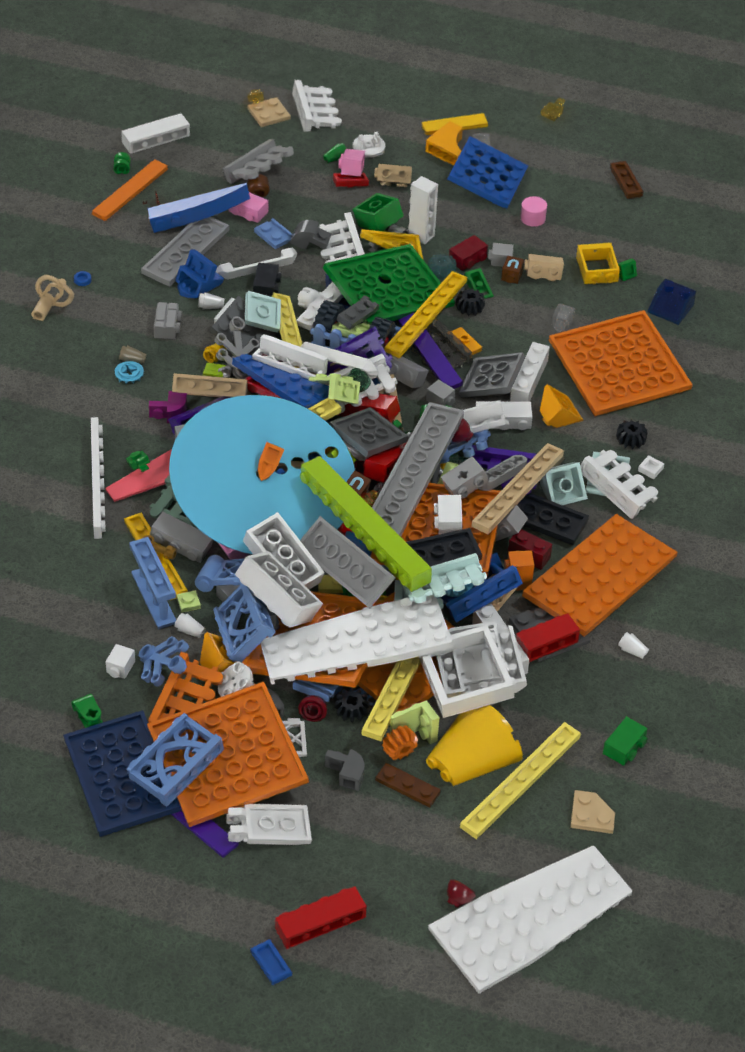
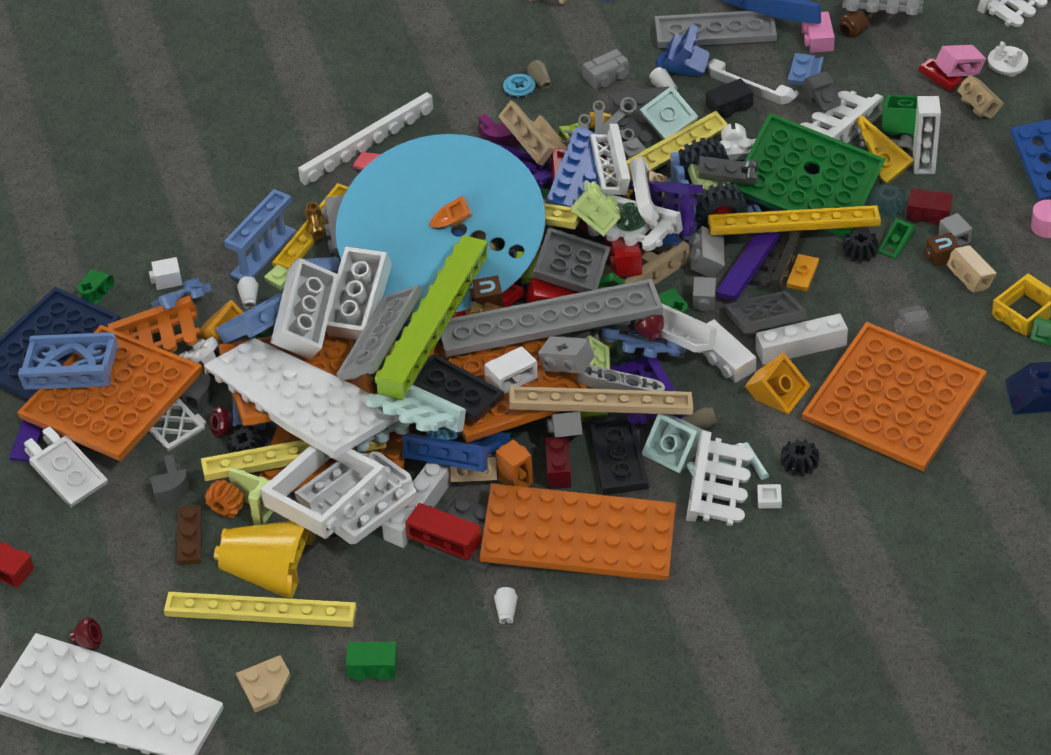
camera: 60 degrees right, 0 degrees up
(334, 153) = (972, 40): green cone -> none

